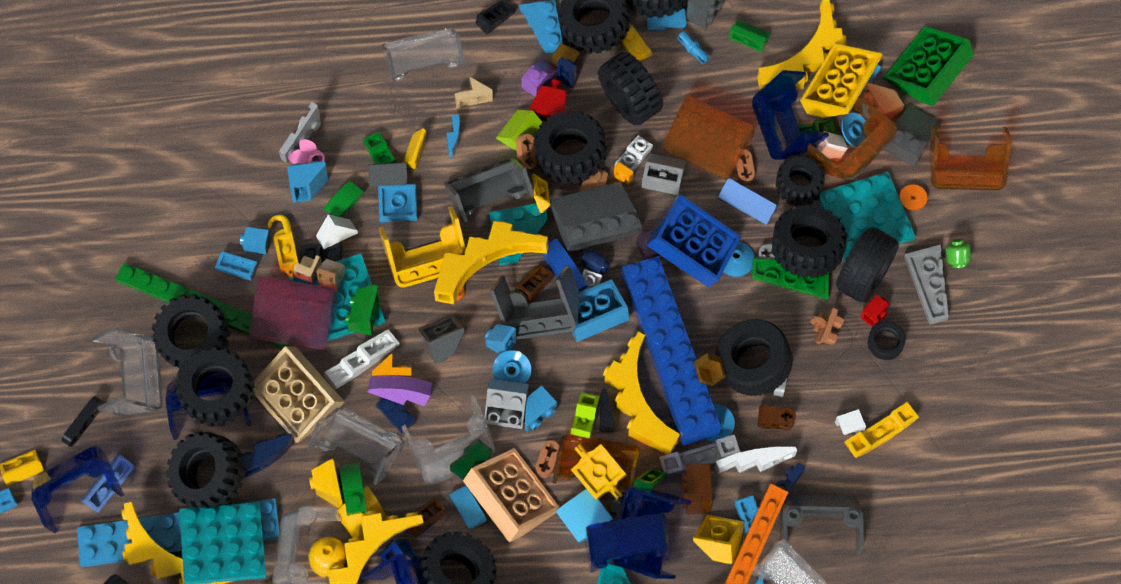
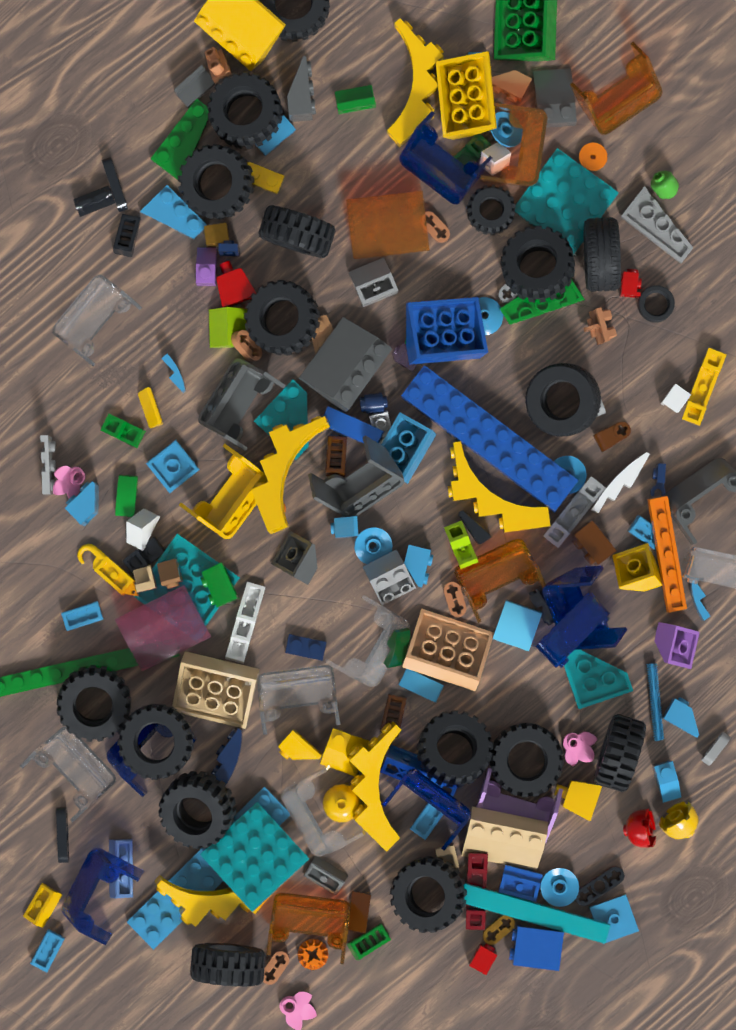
camera: 30 degrees left, 20 degrees up
(255, 240) = (81, 584): dark azure brick -> none
(352, 488) = (322, 738): green arch -> none
(386, 368) = (274, 619): light orange slope -> none
(387, 174) = (146, 448): dark grey slope -> none
(400, 388) = (296, 627): medium lavender slope -> none
(478, 94) = (167, 320): tan slope -> none
(541, 193) = (286, 376): yellow slope -> none
(598, 472) = (506, 585): yellow plate -> none
(623, 173) = (340, 308): light orange plate -> none
(635, 153) = (336, 283): white slope -> none
(649, 478) = (551, 563): green slope -> none
(693, 47) = (316, 146): dark azure pin -> none
(709, 369) = (537, 438): pearl gold panel -> none
(747, 201) = (459, 258): medium blue slope -> none

